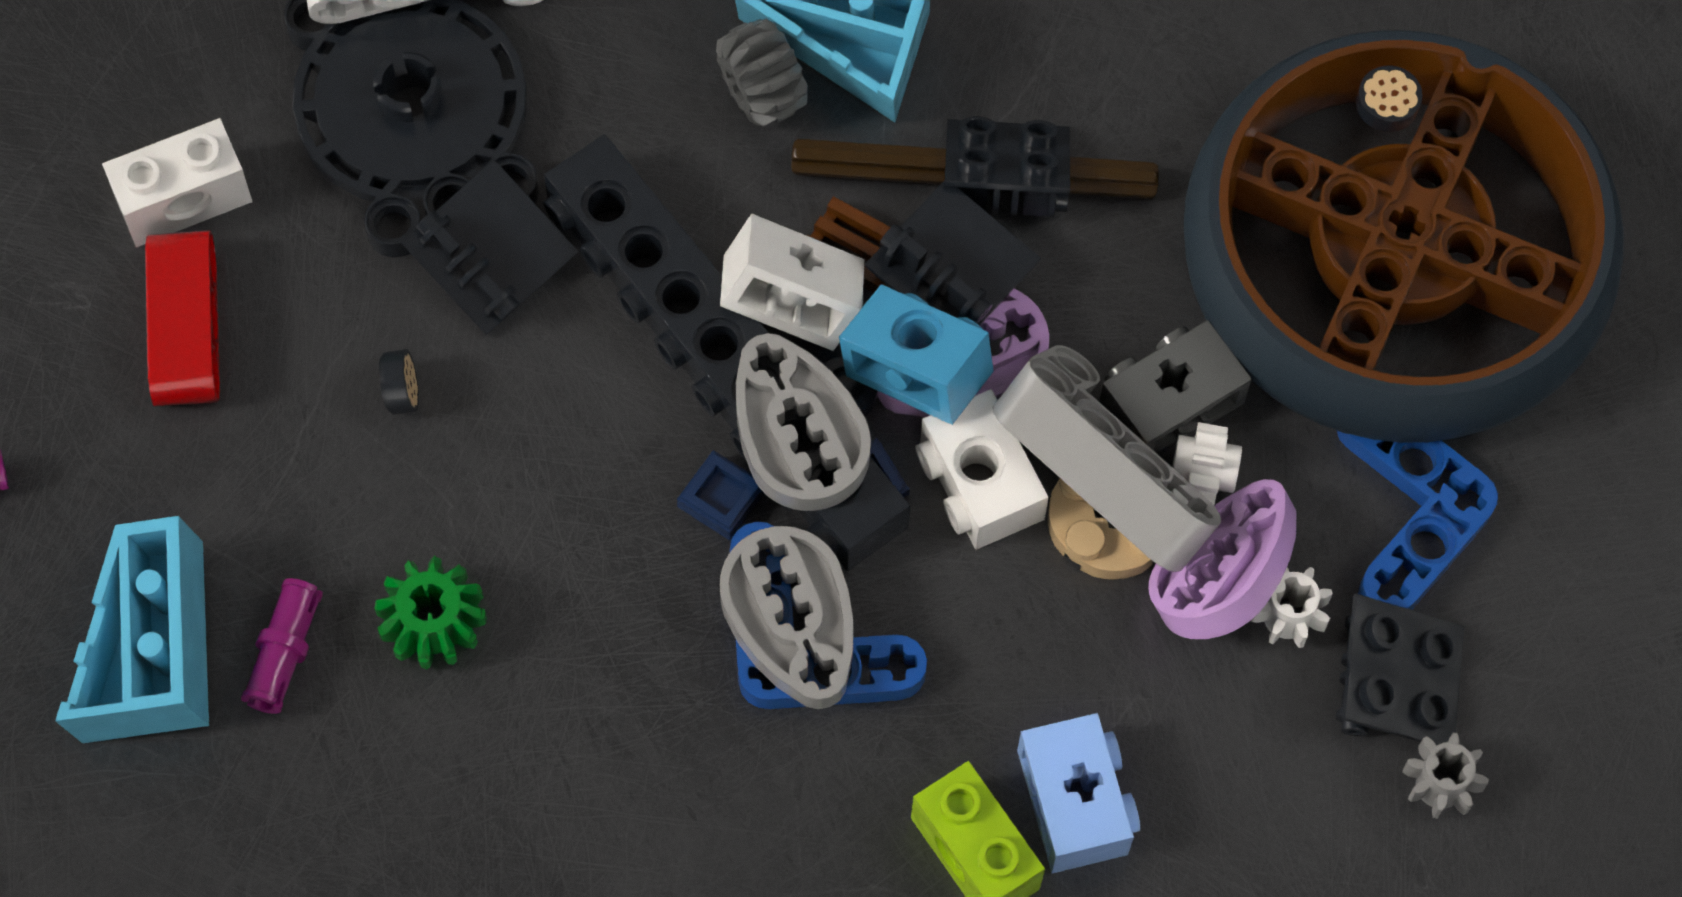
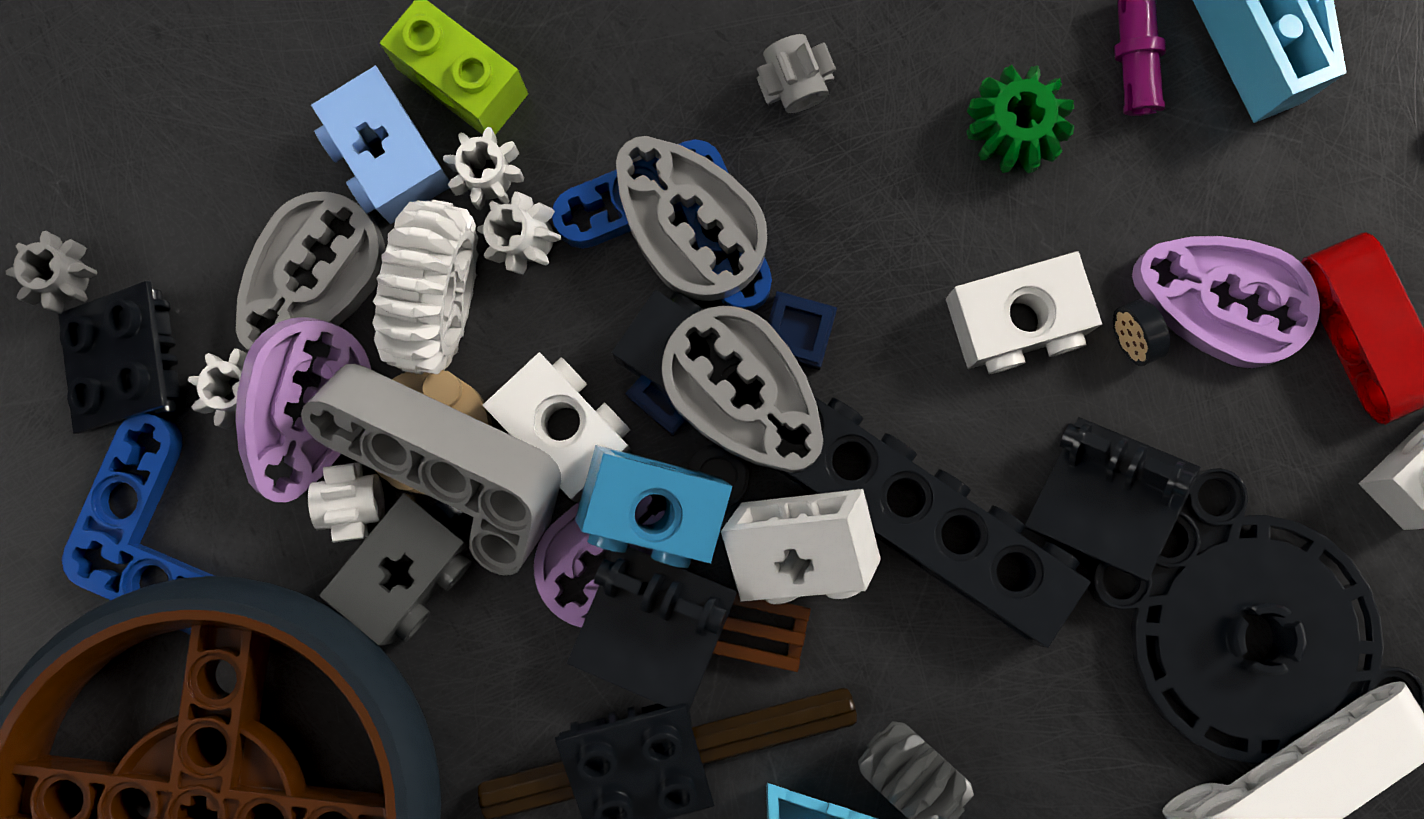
camera: 170 degrees right, 15 degrees up
(315, 362) = (1249, 269): none -> lavender piece
(530, 455) = (1052, 288): none -> white brick
(634, 726) = (796, 73): none -> light grey gear
(964, 659) = (520, 216): none -> white gear
(969, 724) = (473, 155): none -> white gear
(1068, 620) = (425, 286): none -> white gear
(1203, 732) = (285, 246): none -> light grey piece

